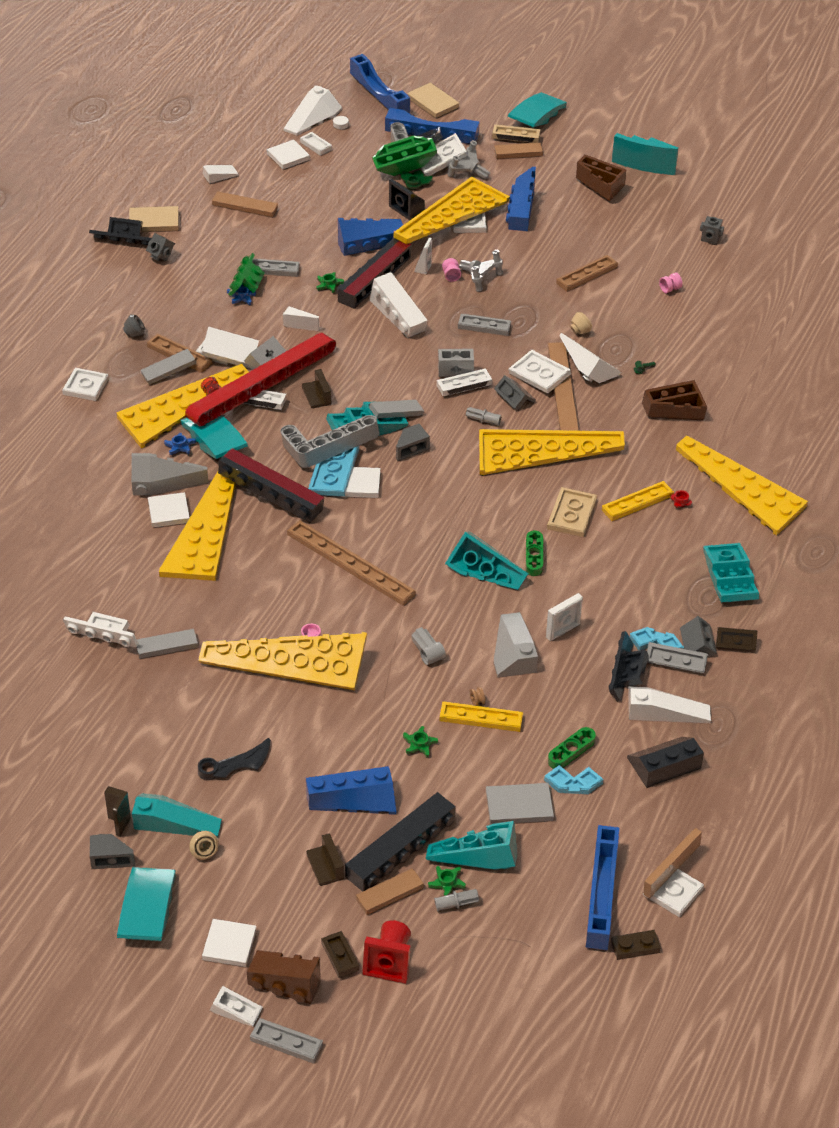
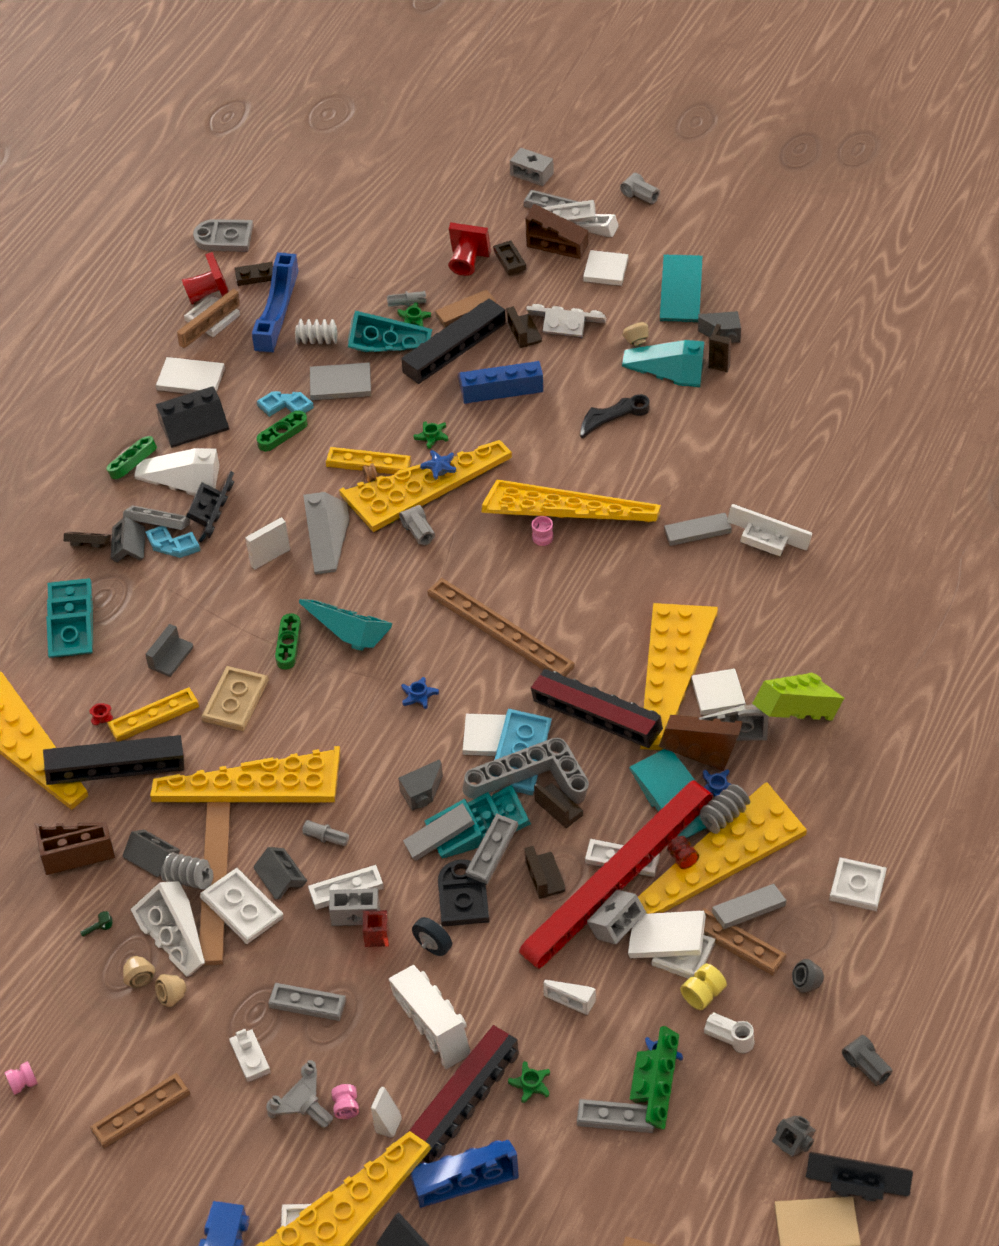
camera: 175 degrees left, 5 degrees up
(105, 288) = (863, 1055): none -> dark grey piece
(107, 472) = (798, 697): none -> lime wedge
(175, 411) = (724, 808): none -> light grey piece
(182, 1057) = (637, 186): none -> light grey piece
(188, 299) = (729, 1031): none -> white piece
(188, 450) = (701, 739): none -> reddish brown wedge
(209, 317) = (705, 985): none -> light yellow wheel
(271, 1008) = (575, 212): none -> white plate
(278, 869) = (564, 321): none -> white bracket
(307, 425) = (557, 804): none -> dark brown panel
(311, 1091) = (531, 166): none -> light grey brick
(355, 394) = (491, 848): none -> light grey tile
(377, 379) = (461, 897): none -> black tile
(398, 344) = (432, 936): none -> black wheel
(409, 690) = (439, 464): none -> blue animal
(418, 511) = (418, 693): none -> blue animal
(430, 685) = (382, 500): none -> yellow wing
(435, 344) = (376, 928): none -> clear red brick
(519, 298) = (249, 1055): none -> white plate
(551, 852) = (316, 331): none -> white piece
(583, 383) = (187, 871): none -> light grey piece
(605, 333) = (138, 972): none -> tan cone
(614, 407) = (148, 851): none -> dark grey panel
(636, 545) = (168, 652): none -> dark grey panel
(659, 454) = (113, 759): none -> black brick
(676, 911) = (207, 283): none -> red plant
(679, 812) = (189, 375): none -> white tile
(683, 1002) = (224, 235): none -> light grey tile
(715, 727) = (131, 457): none -> green beam

